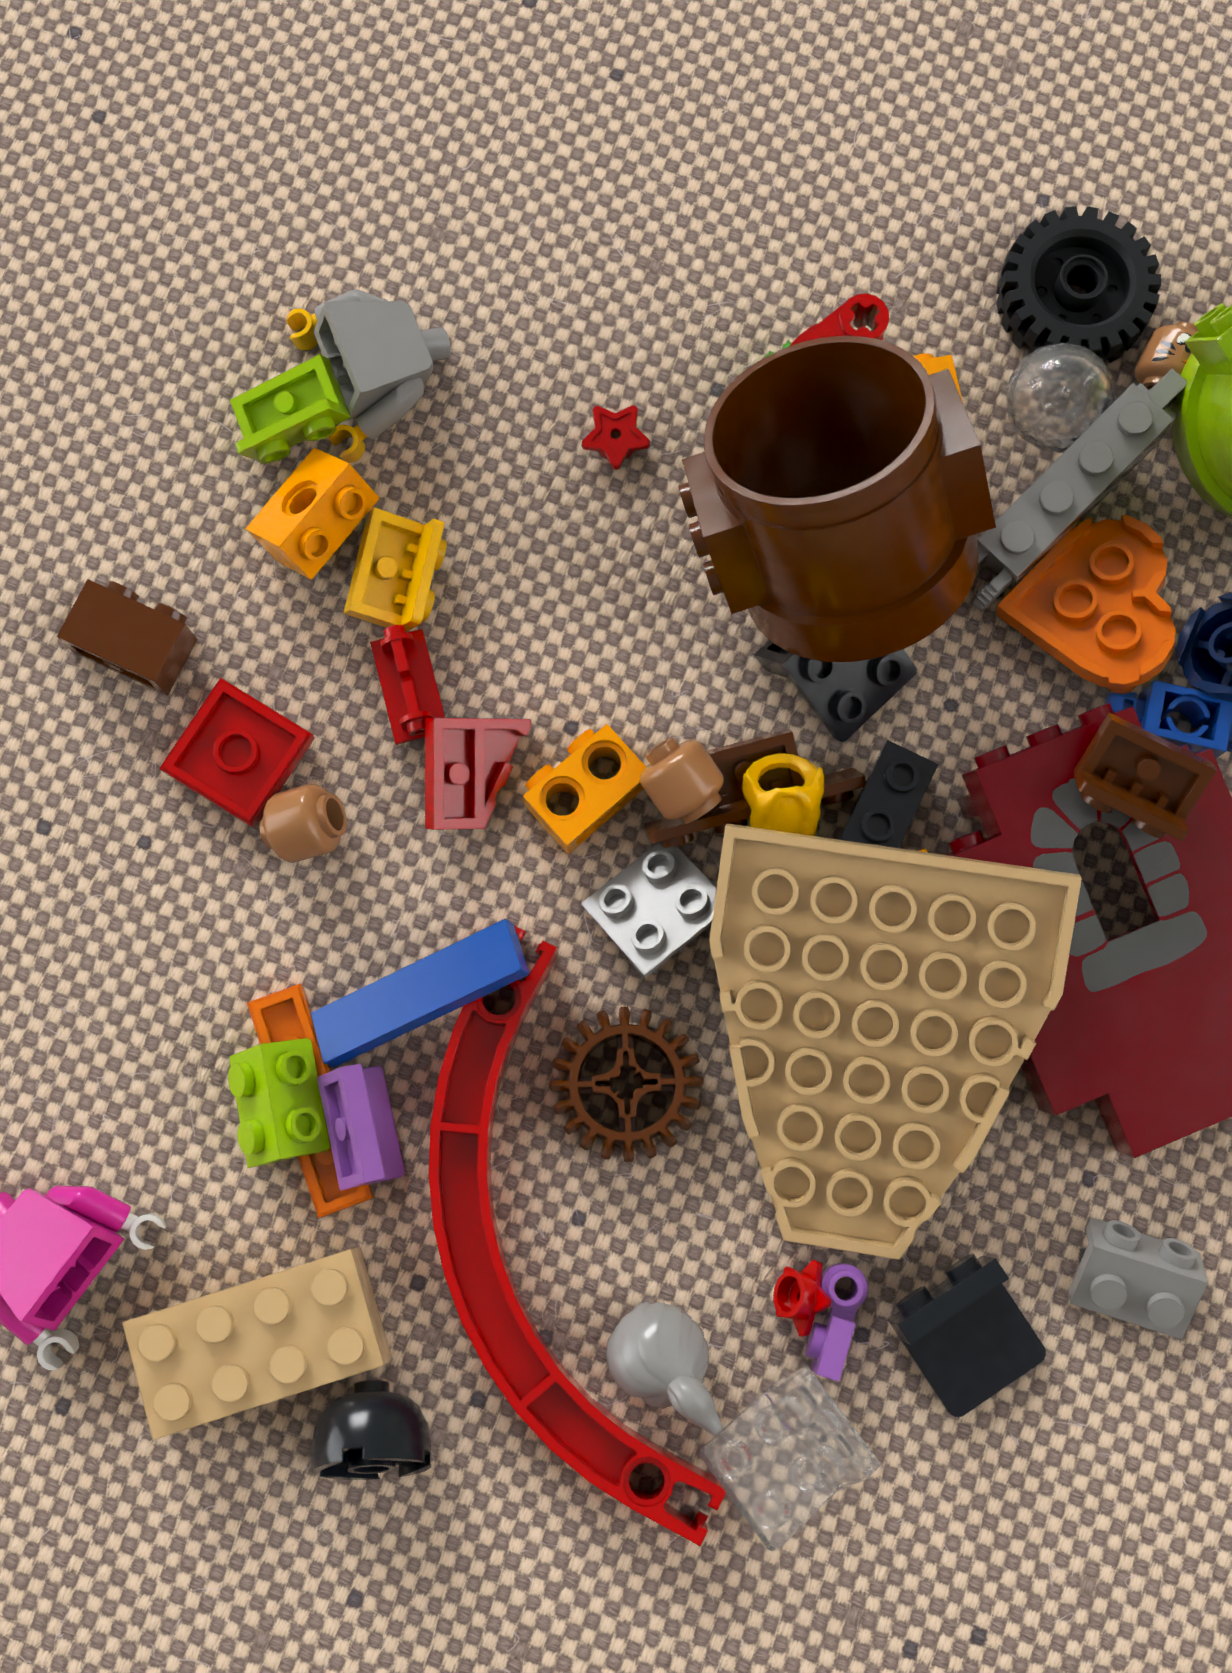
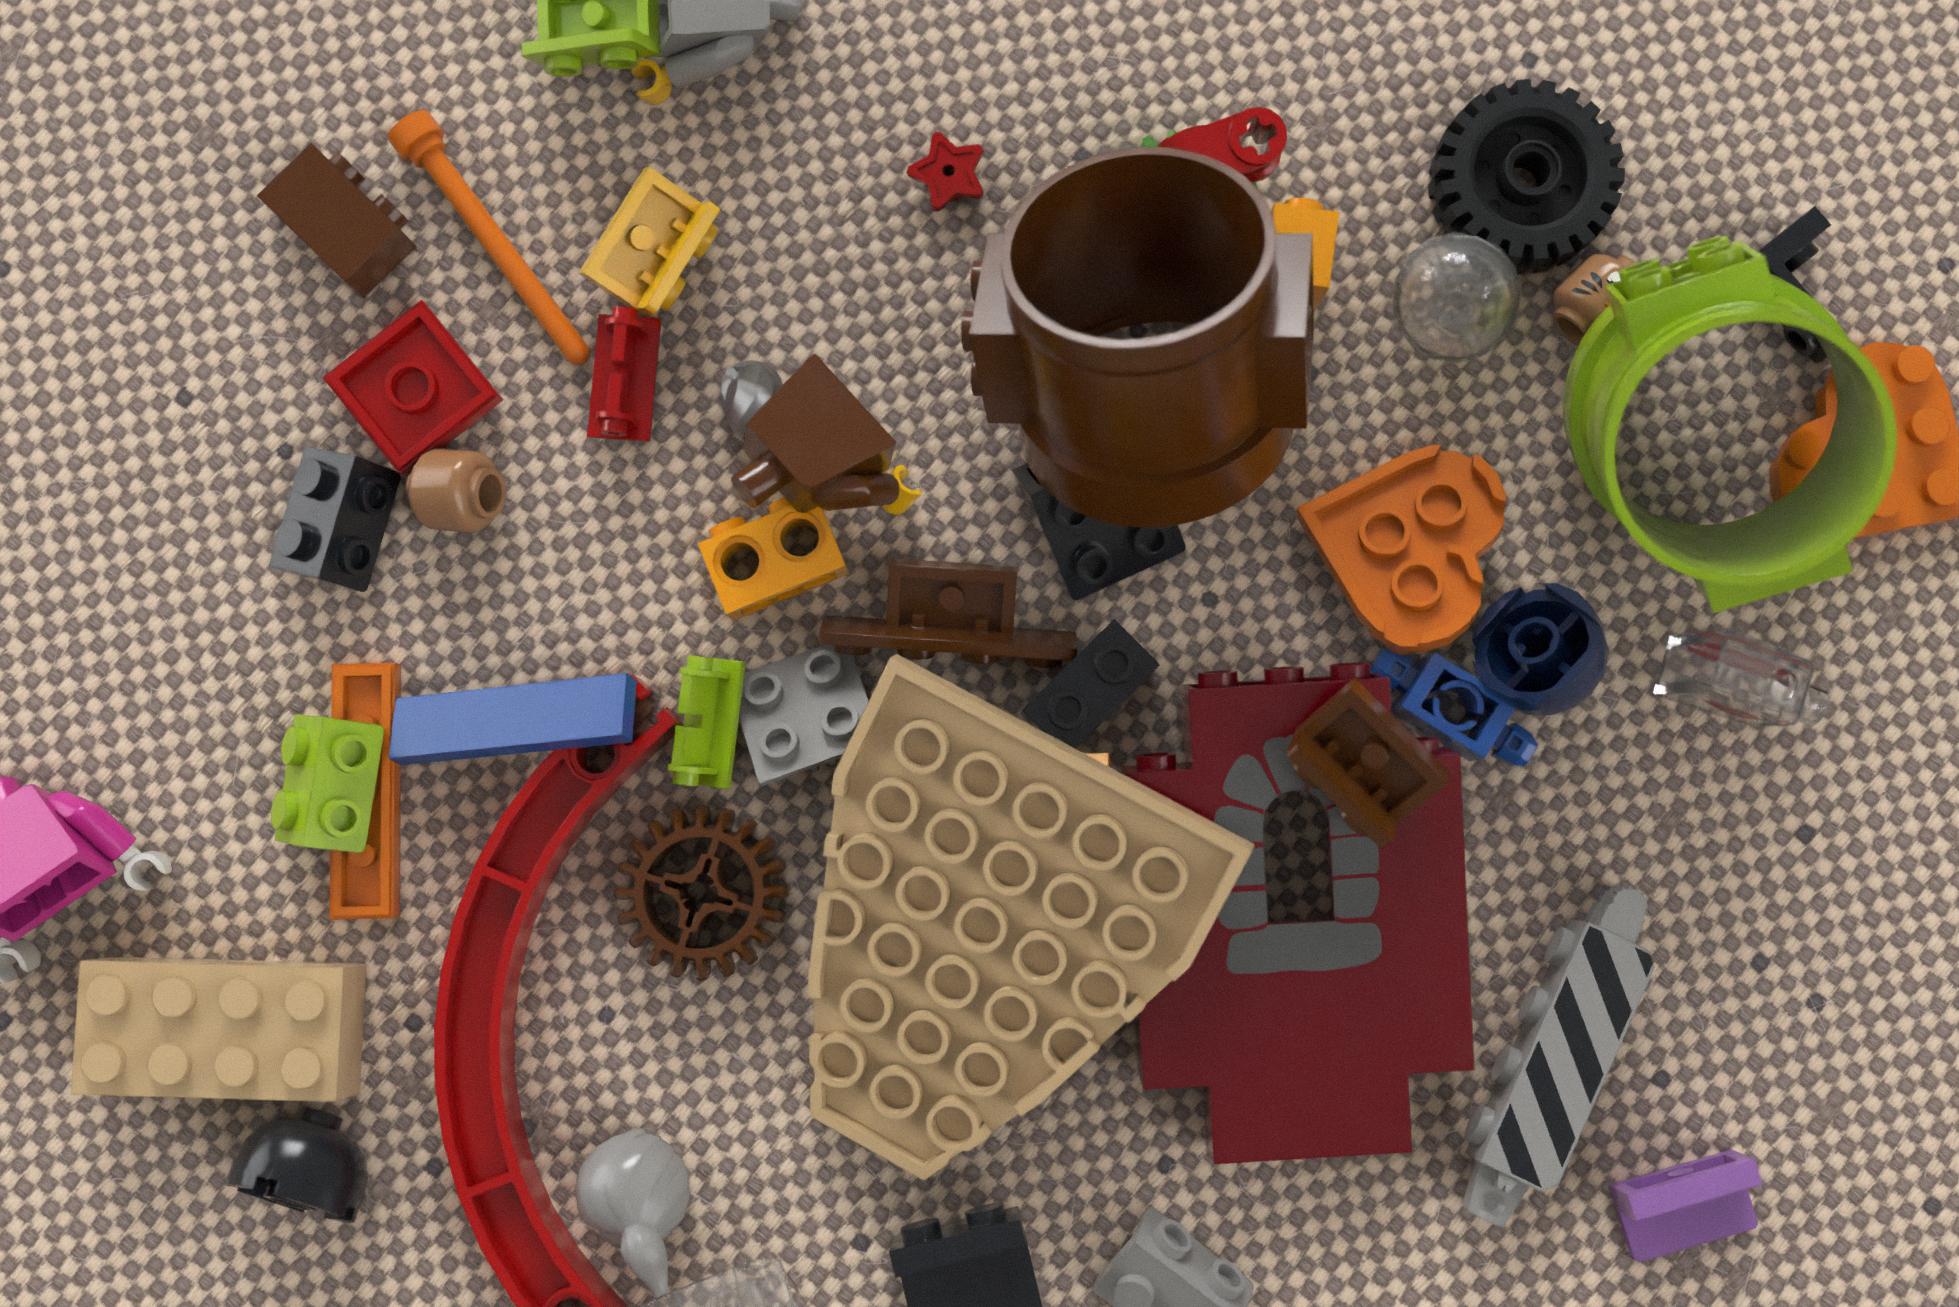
camera: 20 degrees right, 5 degrees up
(173, 552) = (420, 141): none -> orange piece
(207, 881) = (335, 518): none -> black bracket
(313, 513) = (581, 149): light orange brick -> none
(360, 1126) = (406, 839): medium lavender panel -> none
(467, 768) = (653, 489): wing -> none
(581, 940) = (711, 712): none -> lime hinge
(585, 680) = (810, 441): none -> reddish brown torso
(682, 780) = (872, 586): medium nougat head -> none
(785, 809) = (977, 662): yellow piece -> none
(800, 1296) = (805, 1181): red plate -> none
(831, 1340) = (820, 1239): medium lavender plate -> none
(1076, 483) = (1433, 401): light grey hinge -> none

